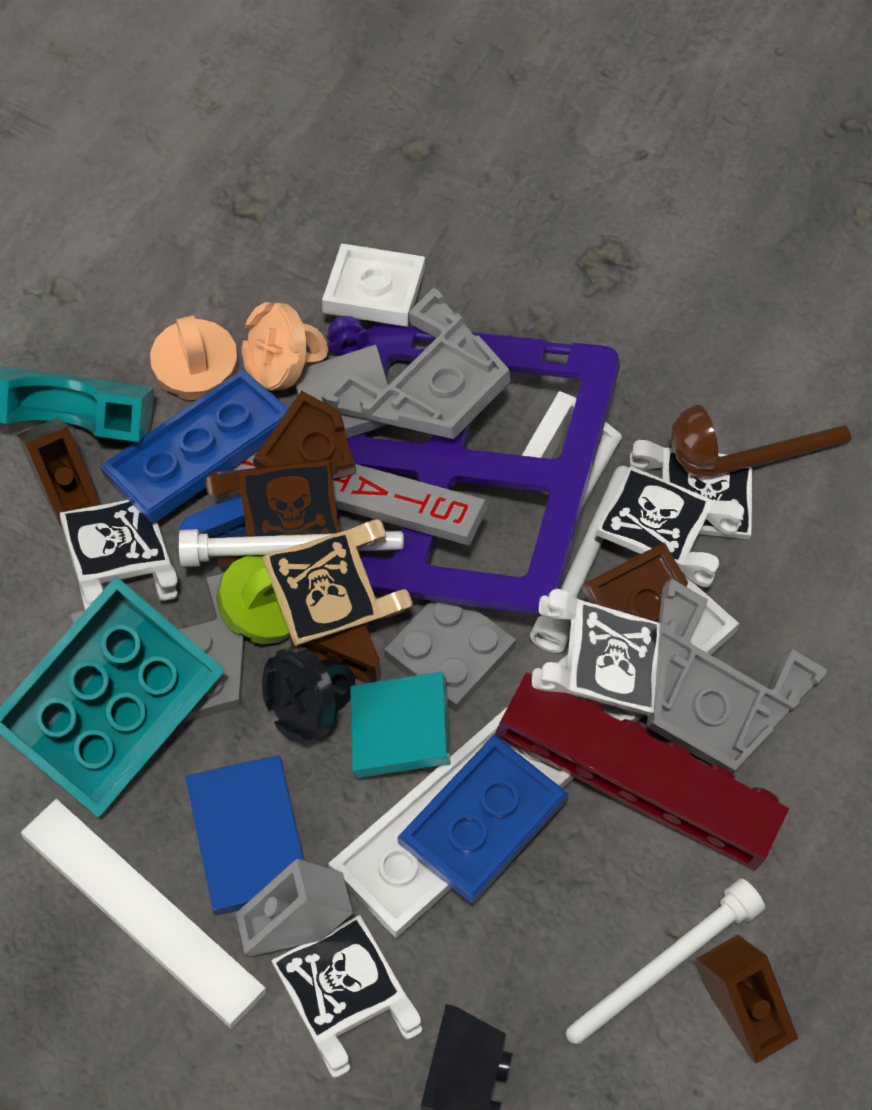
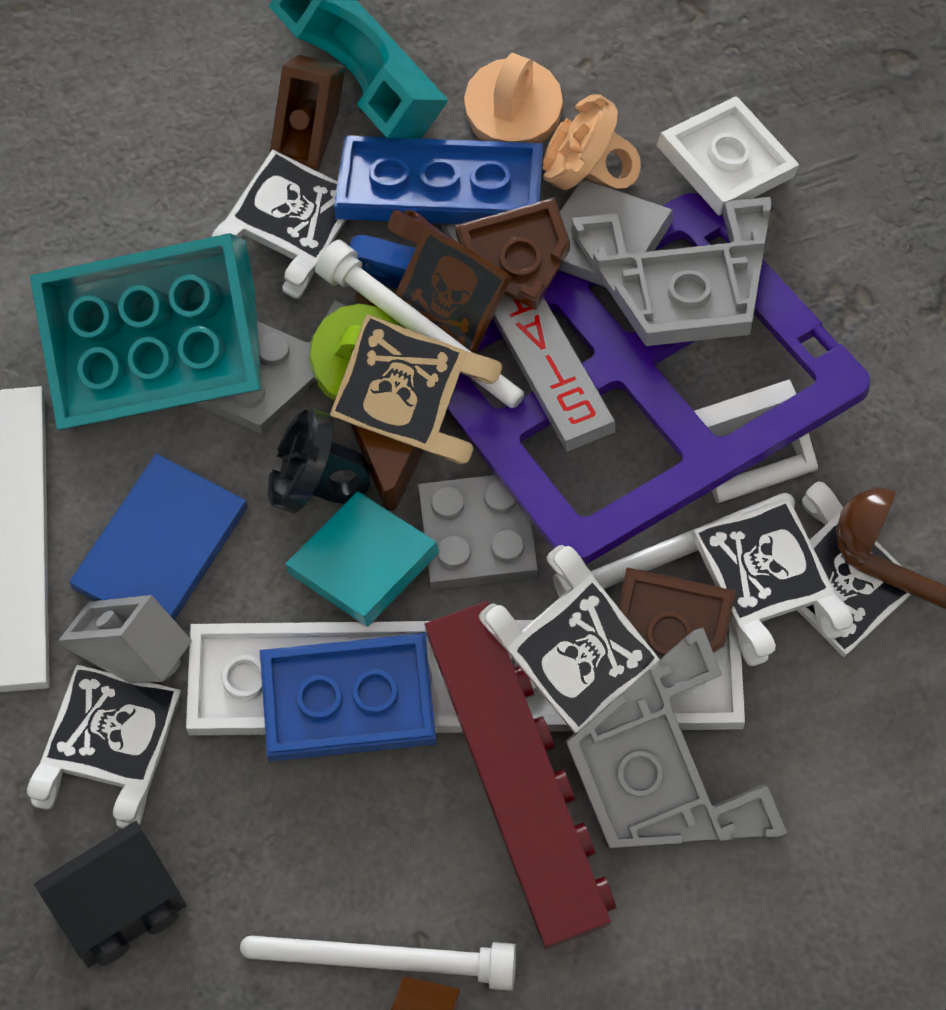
camera: 45 degrees right, 5 degrees up
(346, 335) = (659, 183): dark purple plate -> none

